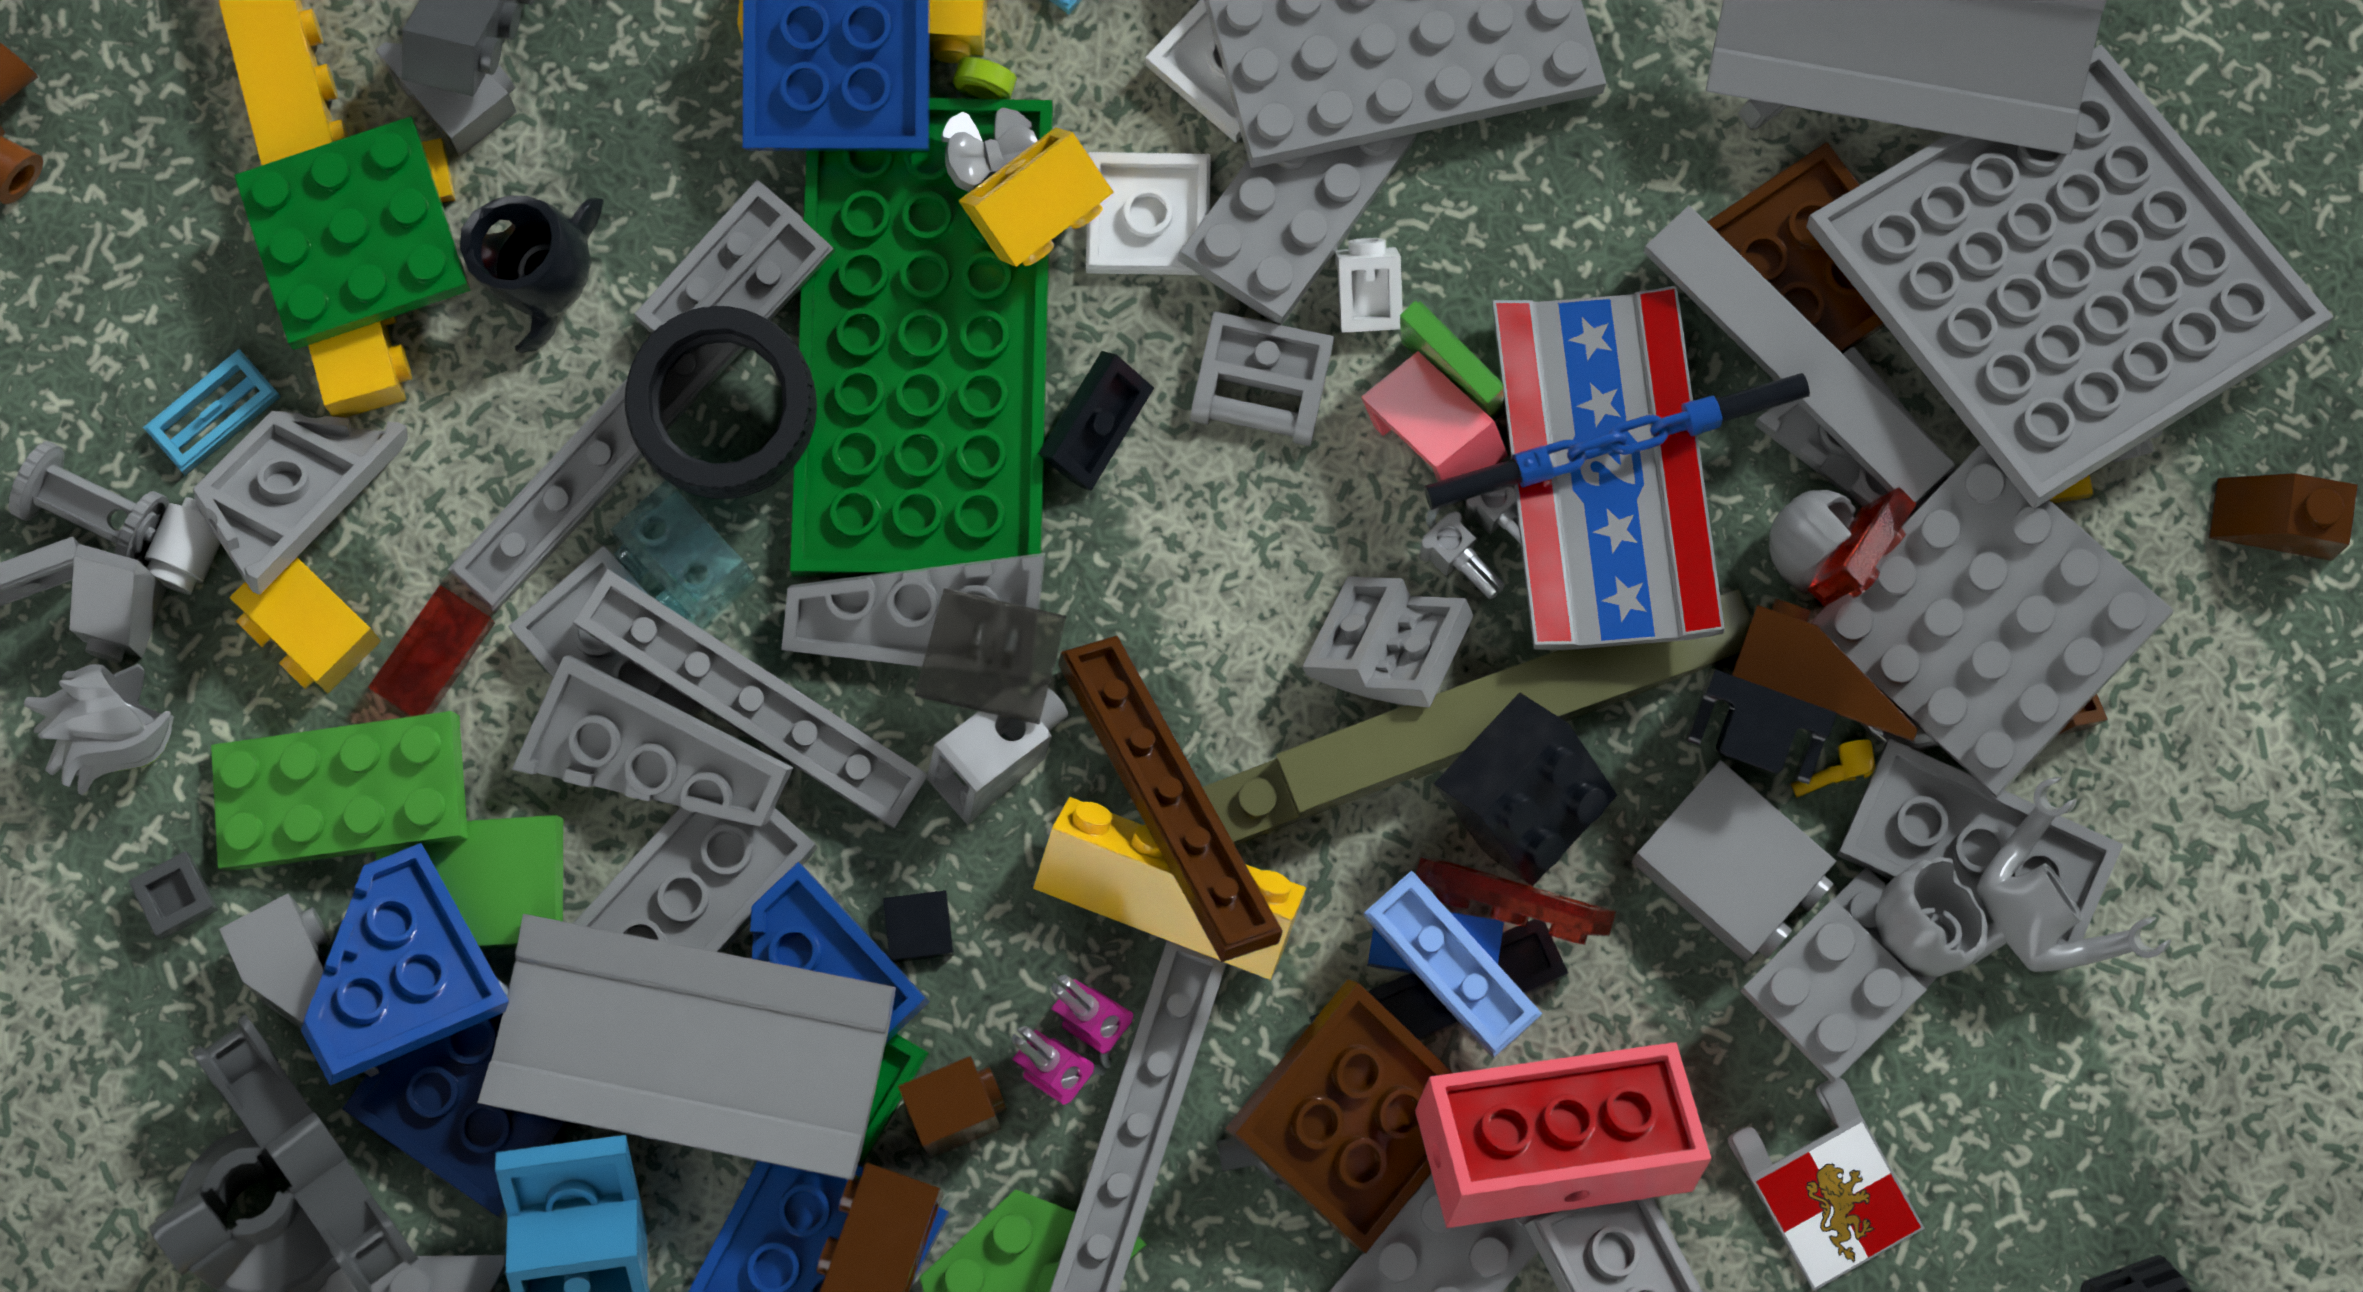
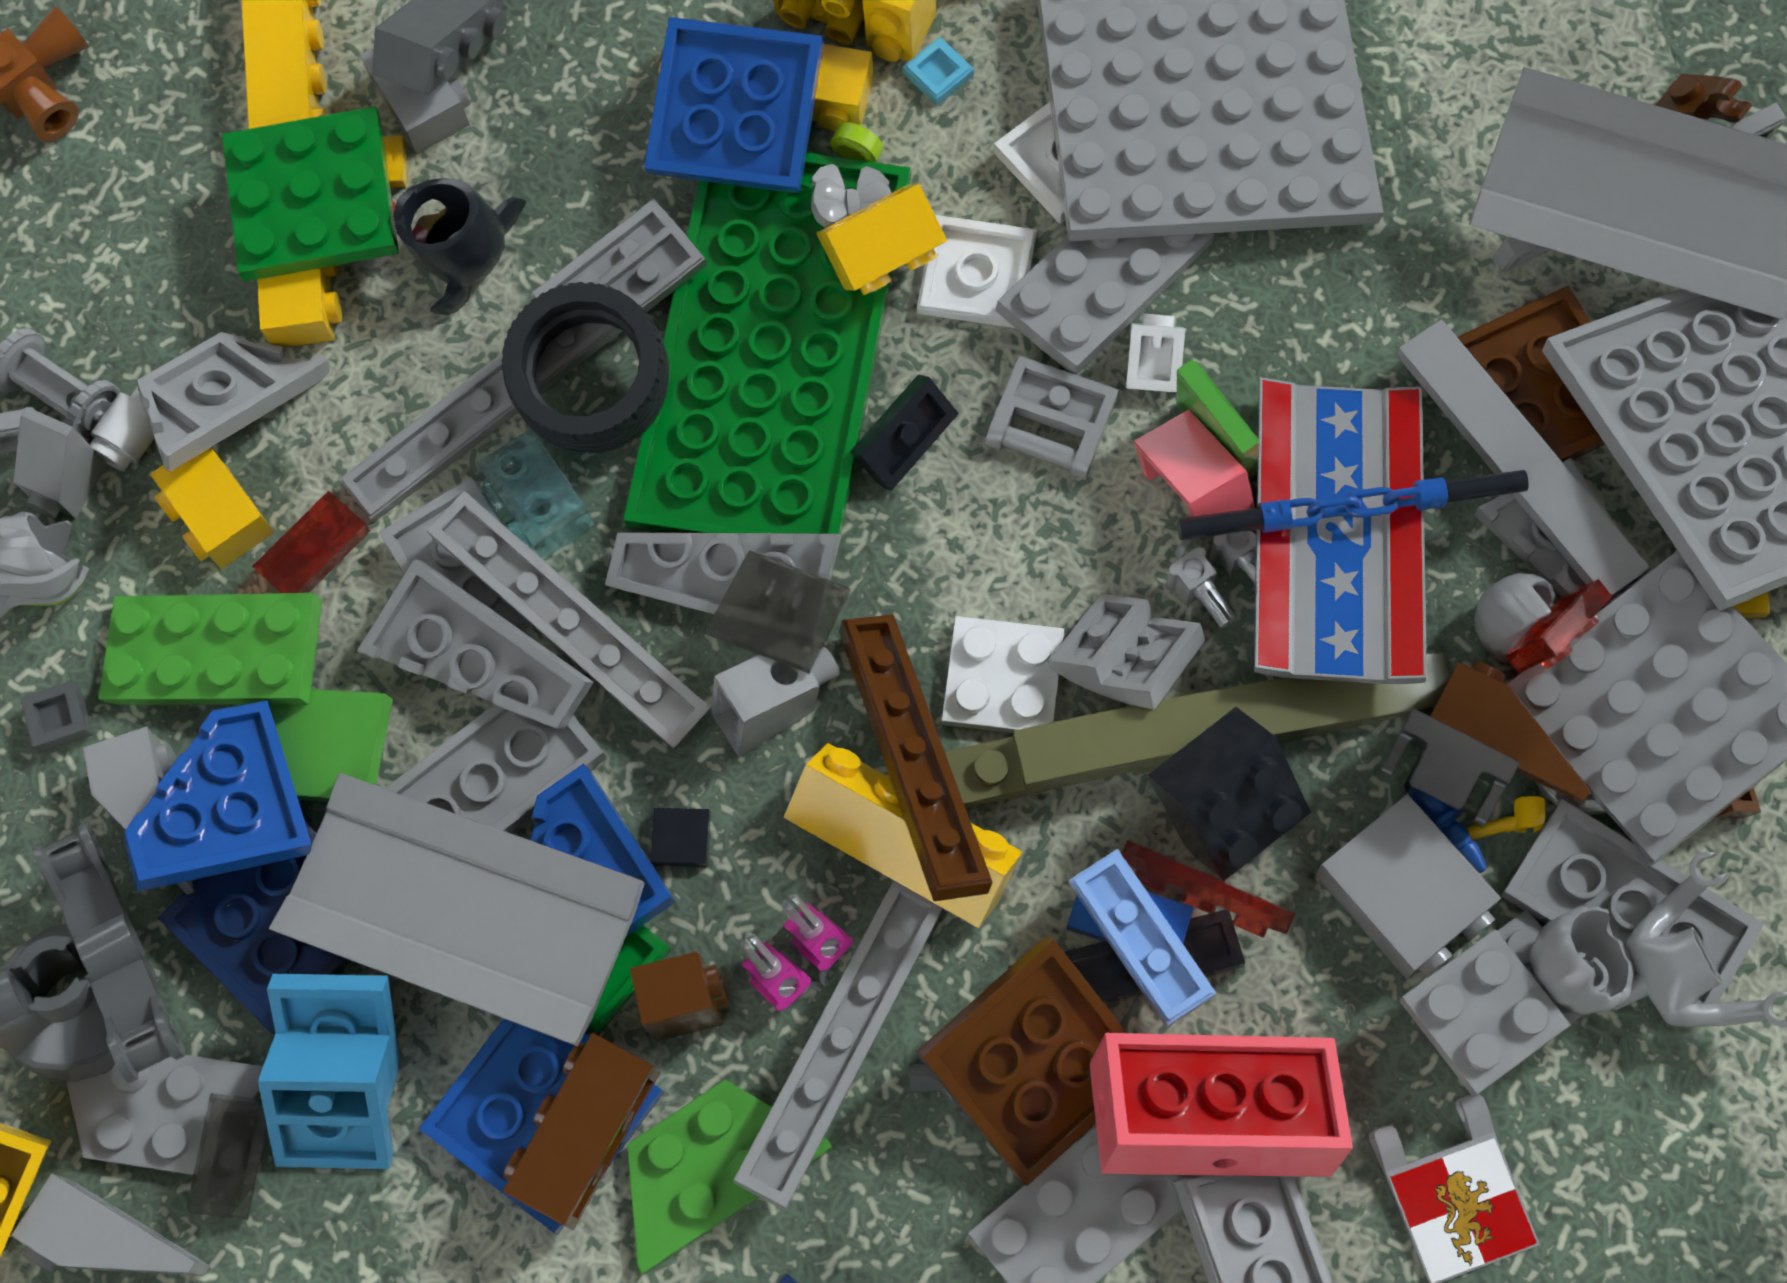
camera: 15 degrees right, 5 degrees down
(224, 431) = (182, 342): medium azure tile -> none
(1251, 688) = (1001, 675): none -> white plate
(1774, 792) = (1445, 819): none -> blue bar

